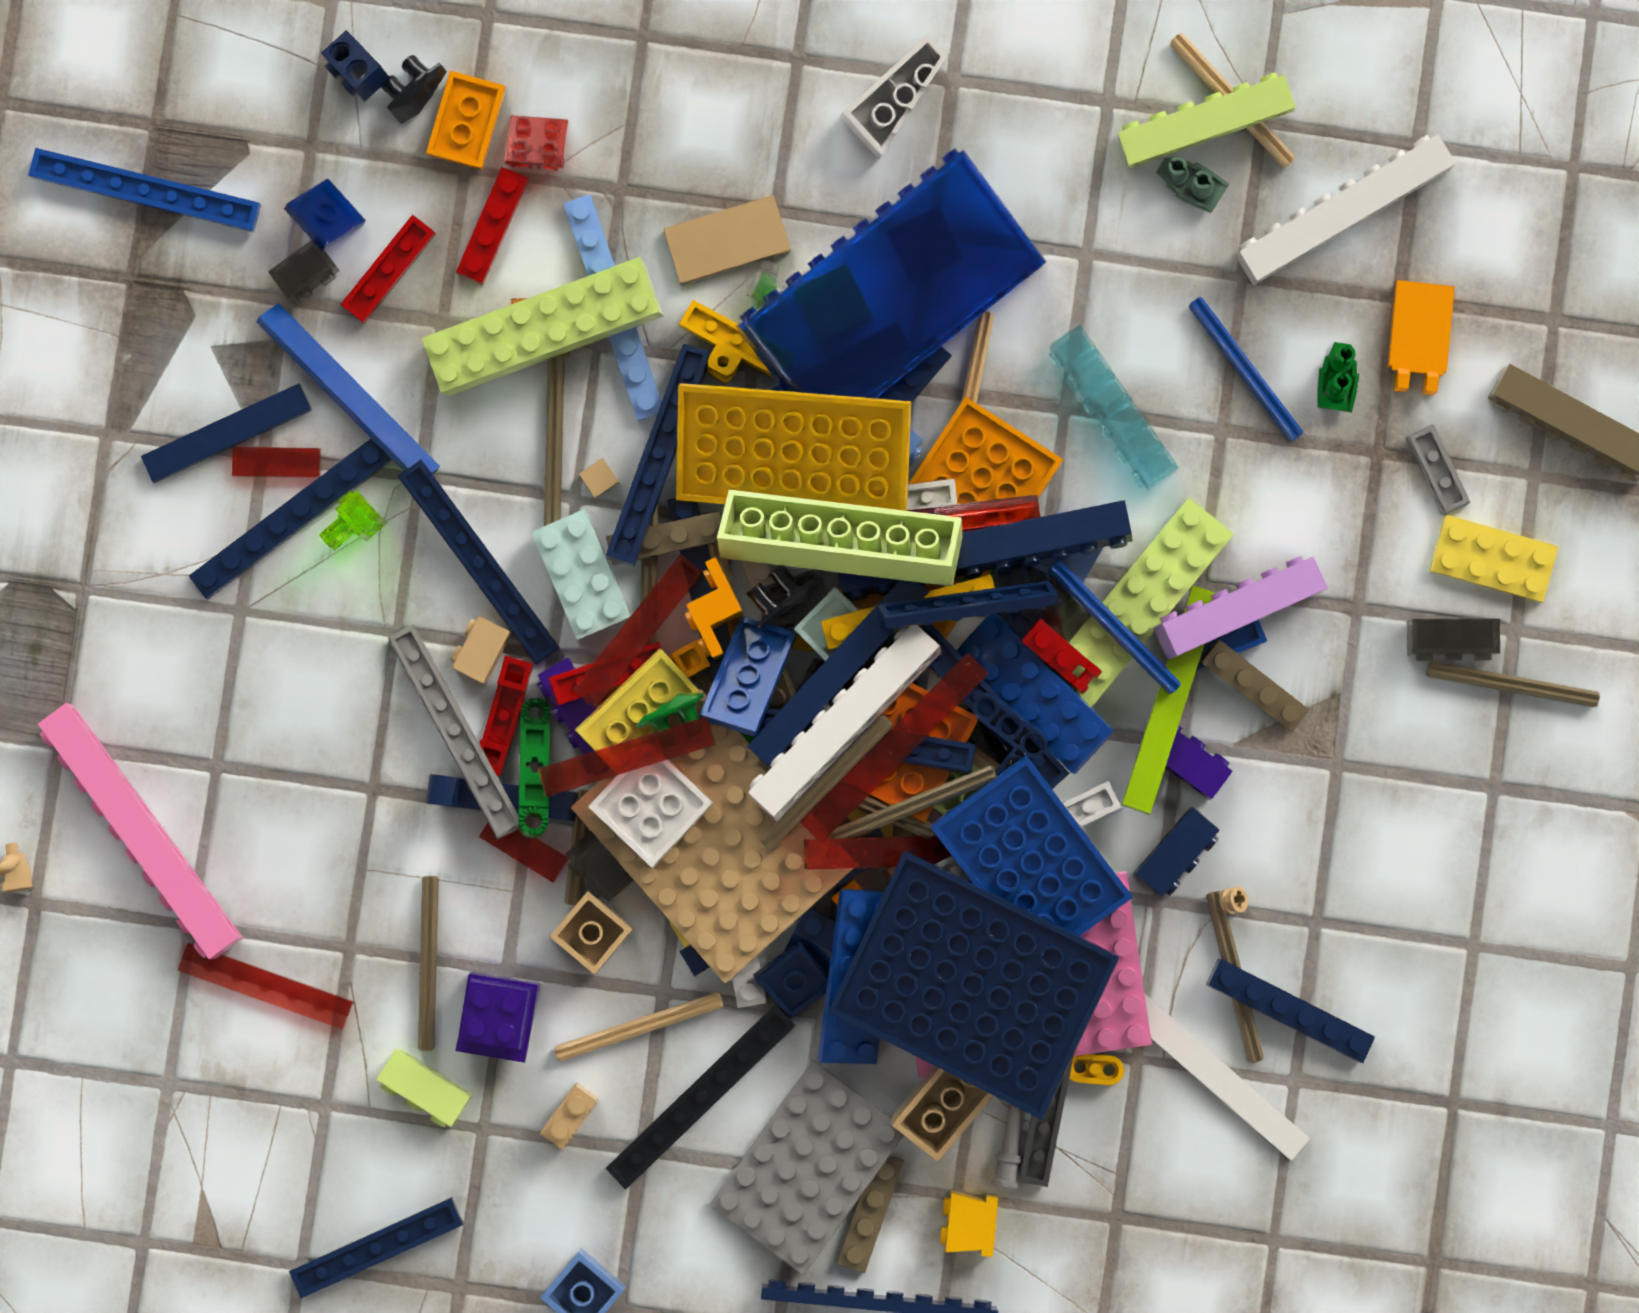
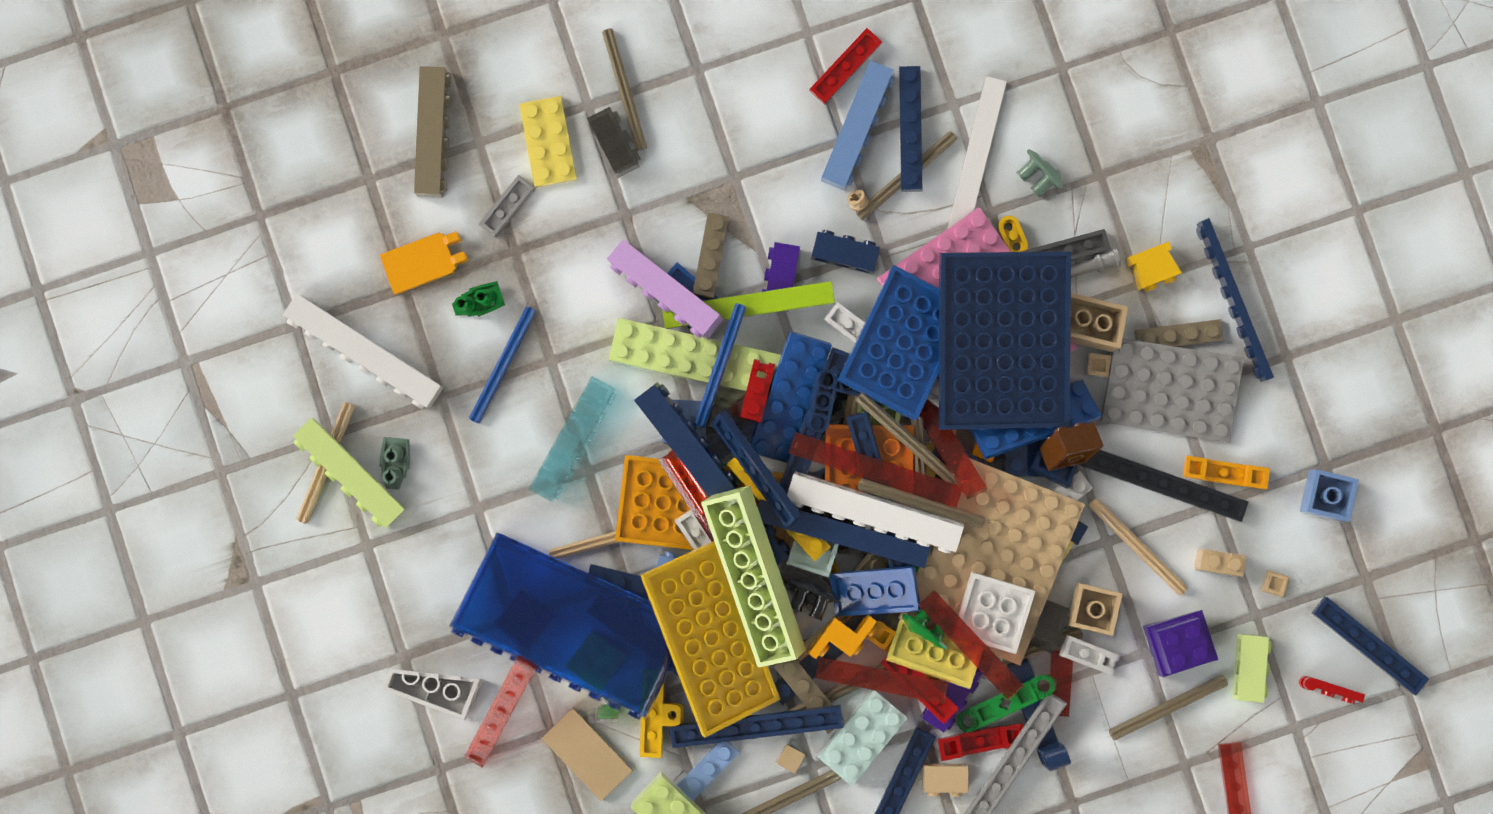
camera: 115 degrees left, 0 degrees up
(349, 1170) = (1330, 689): none -> red plate
(509, 1171) = (1275, 583): none -> tan tile
(539, 898) = (1089, 655): none -> white plate
(674, 1180) = (1226, 472): none -> light orange slope
(803, 1002) = (1071, 446): none -> reddish brown brick
(831, 161) = (500, 711): none -> clear red tile
(883, 1092) = (1098, 365): none -> tan plate
(1145, 1155) = (1051, 175): none -> sand green connector
(1327, 947) = (857, 125): none -> medium blue brick
(1408, 970) = (845, 66): none -> red plate

